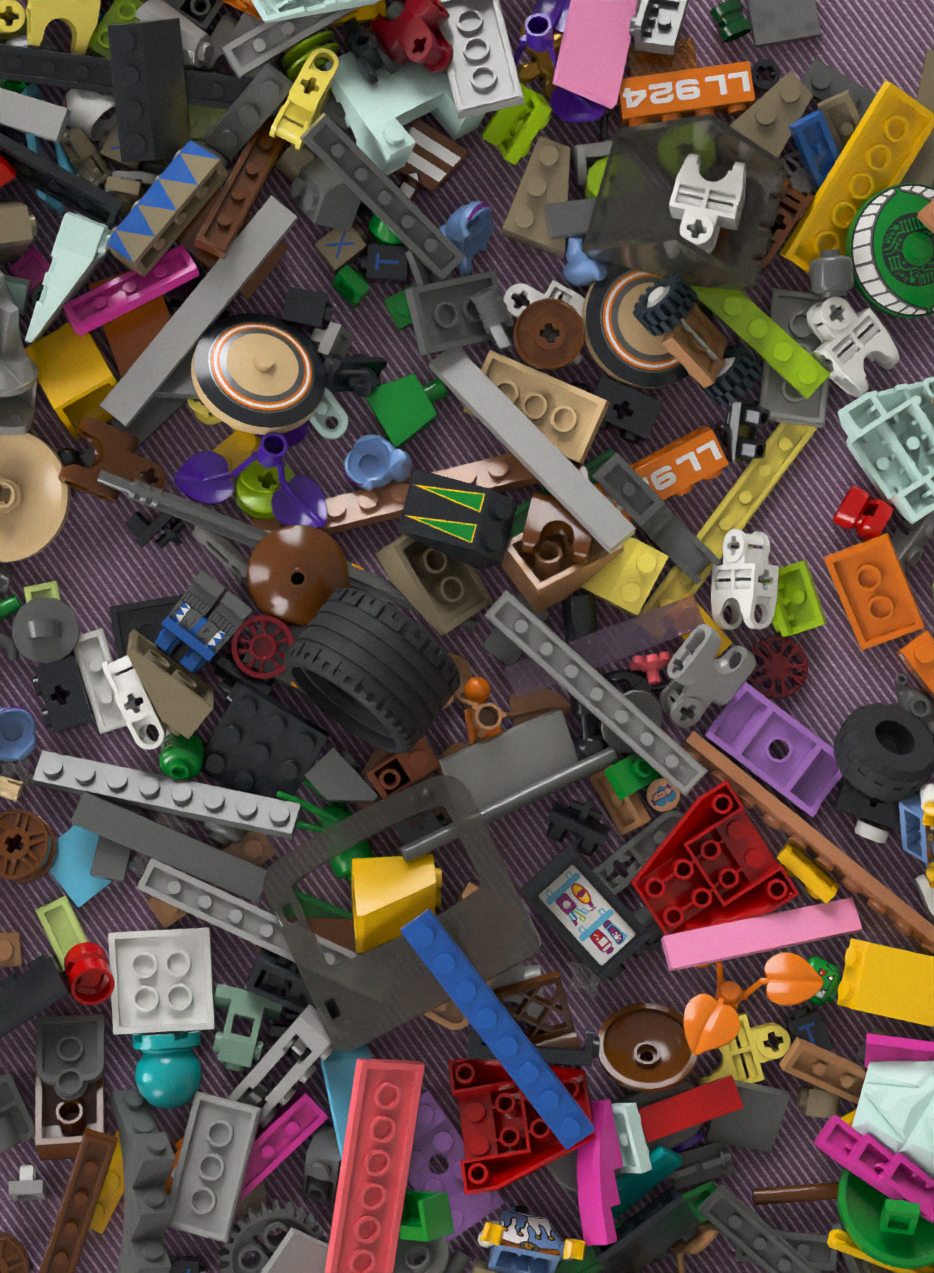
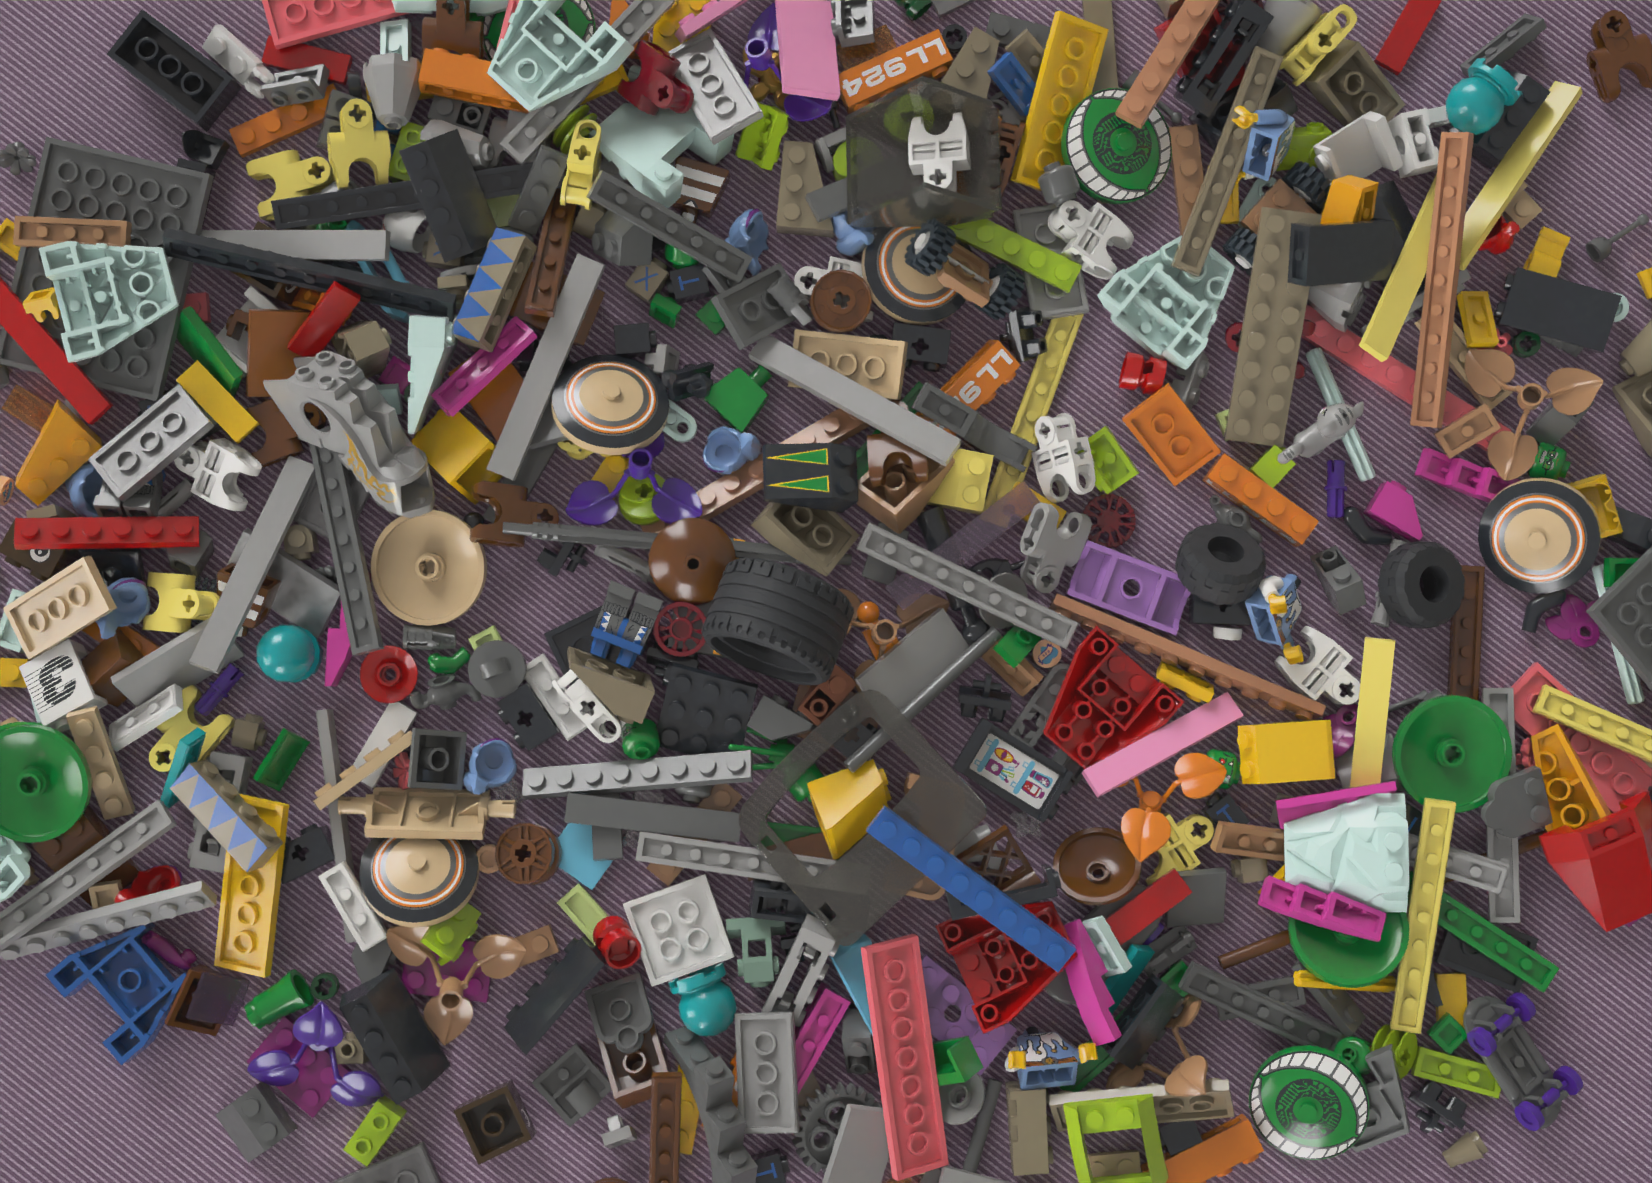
camera: 15 degrees left, 0 degrees up
(84, 156) = (412, 267): dark tan hinge -> none
(367, 50) = (621, 111): black hinge -> none
(651, 665) = (1005, 550): coral plant -> none
(899, 1216) = (1349, 944): green plate -> none

